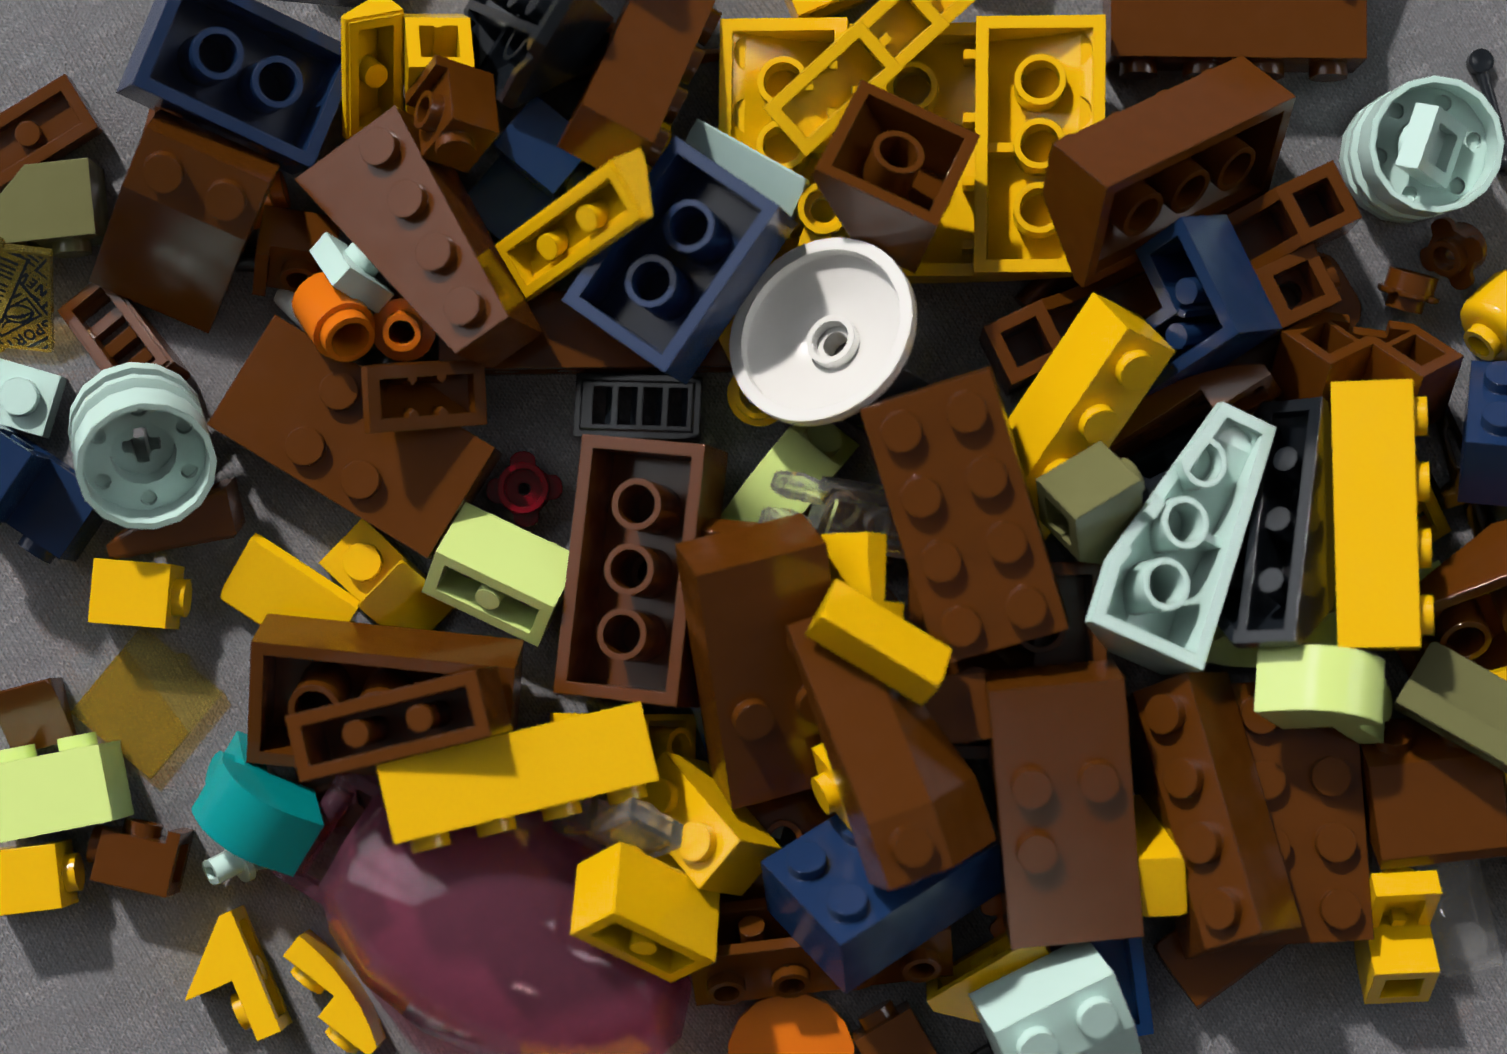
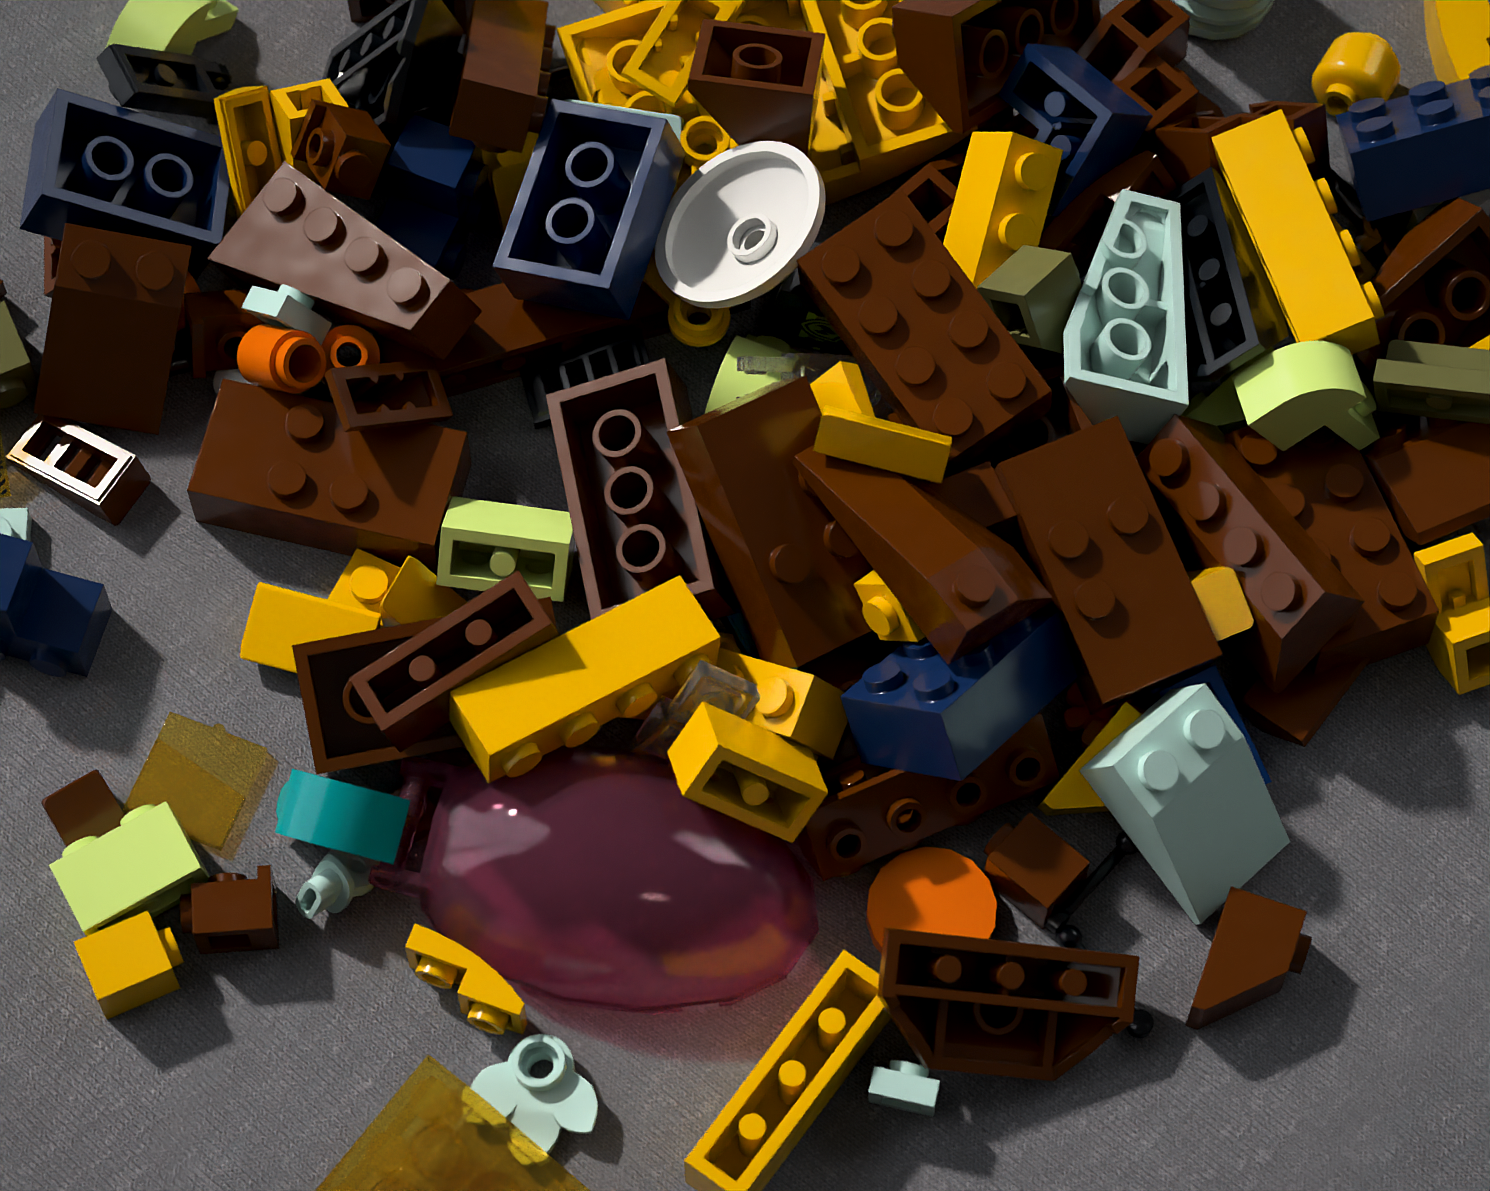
camera: 20 degrees left, 20 degrees down
(139, 594) = (161, 674): yellow brick -> none
(149, 477) = (165, 530): light aqua wheel -> none
(215, 520) = (192, 594): reddish brown slope -> none
(237, 957) = (358, 981): yellow slope -> none
(506, 488) = (503, 464): dark red plate -> none
(579, 224) = (487, 195): yellow slope -> none
(1409, 289) = (1259, 81): reddish brown plate -> none
(1465, 244) = (1301, 36): reddish brown plate -> none

